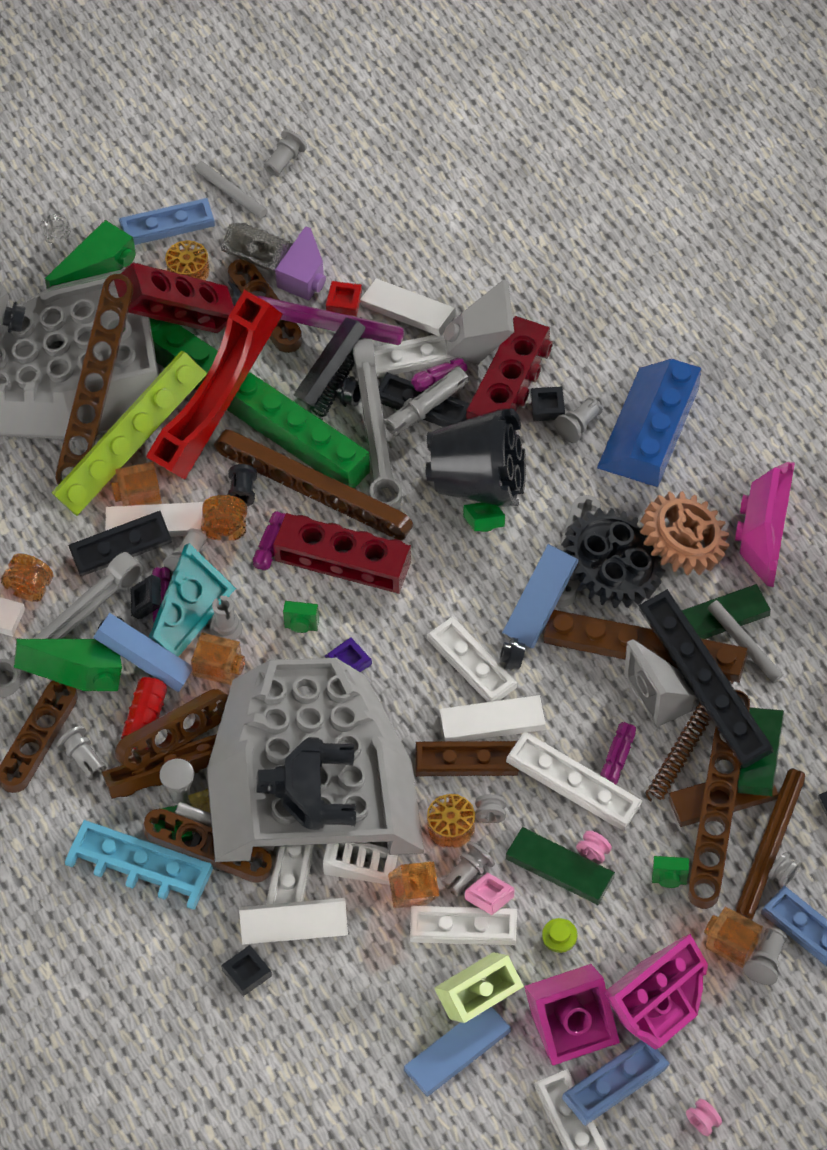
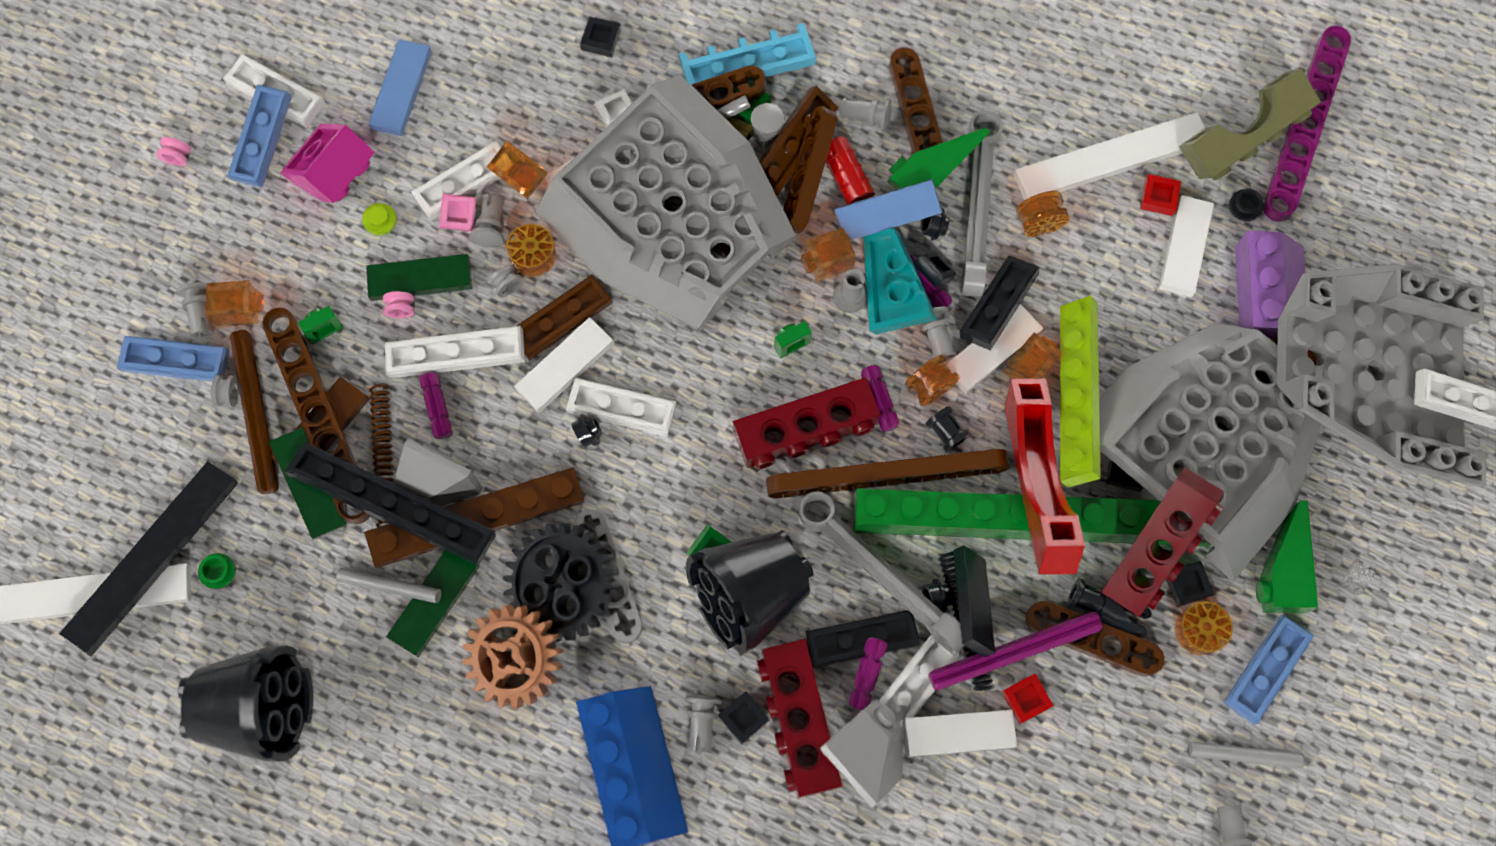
camera: 140 degrees right, 15 degrees up
(14, 317) = (1280, 410): black plate -> none
(93, 365) = (1162, 401): reddish brown beam -> none
(255, 245) = (1152, 690): clear smoke brick -> none
(293, 921) = (594, 92): white tile -> none
(300, 783) = (649, 146): black connector -> none
(301, 267) = (1095, 705): medium lavender slope -> none
(351, 654) = (725, 336): dark purple tile -> none
(416, 408) = (855, 622): light grey pin -> none
(479, 987) = (408, 126): yellowish green brick -> none
(540, 596) = (595, 492): medium blue tile -> none
(661, 992) = (262, 202): dark pink wedge -> none
(765, 521) = (447, 730): dark pink wedge -> none

